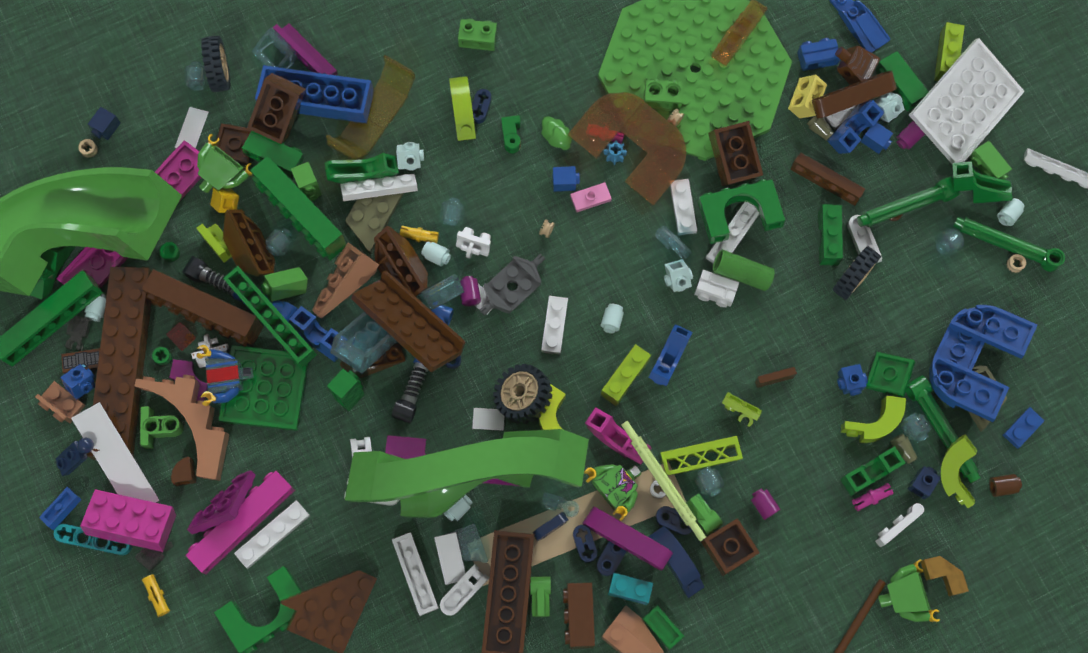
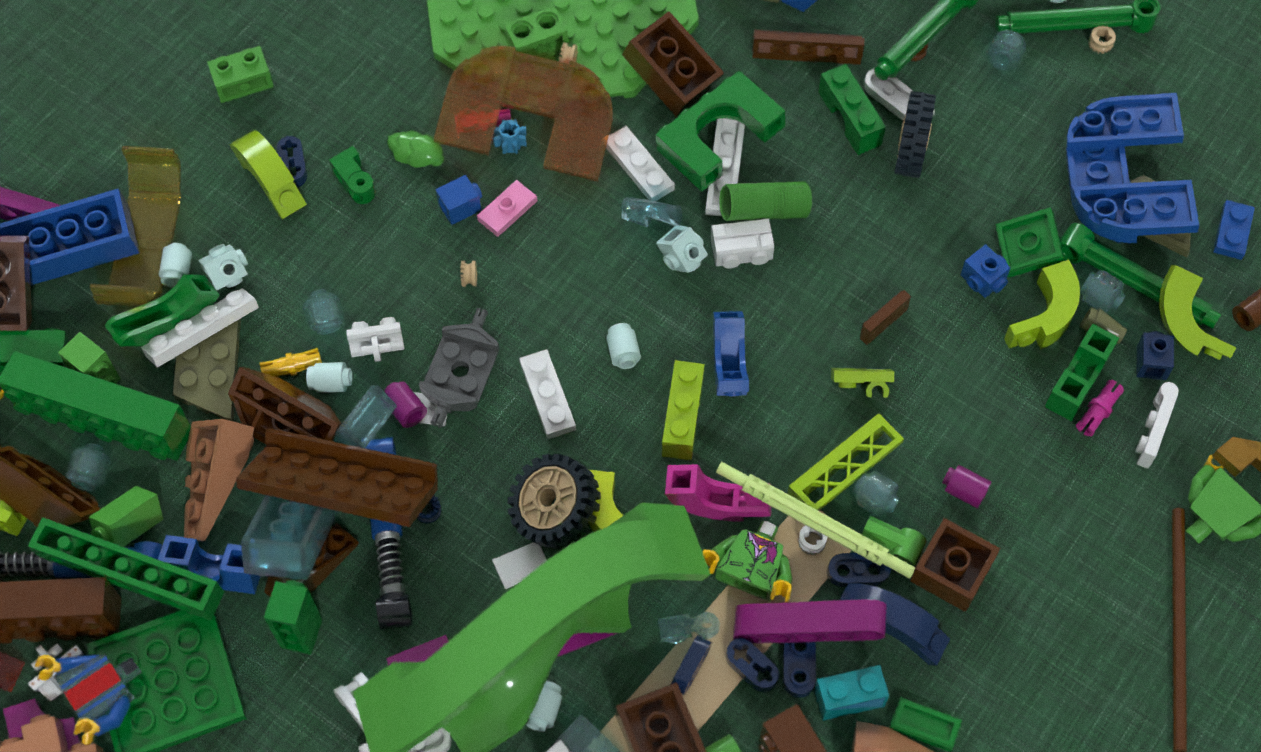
camera: 25 degrees left, 10 degrees down
(383, 140) = (174, 263): none -> light aqua brick

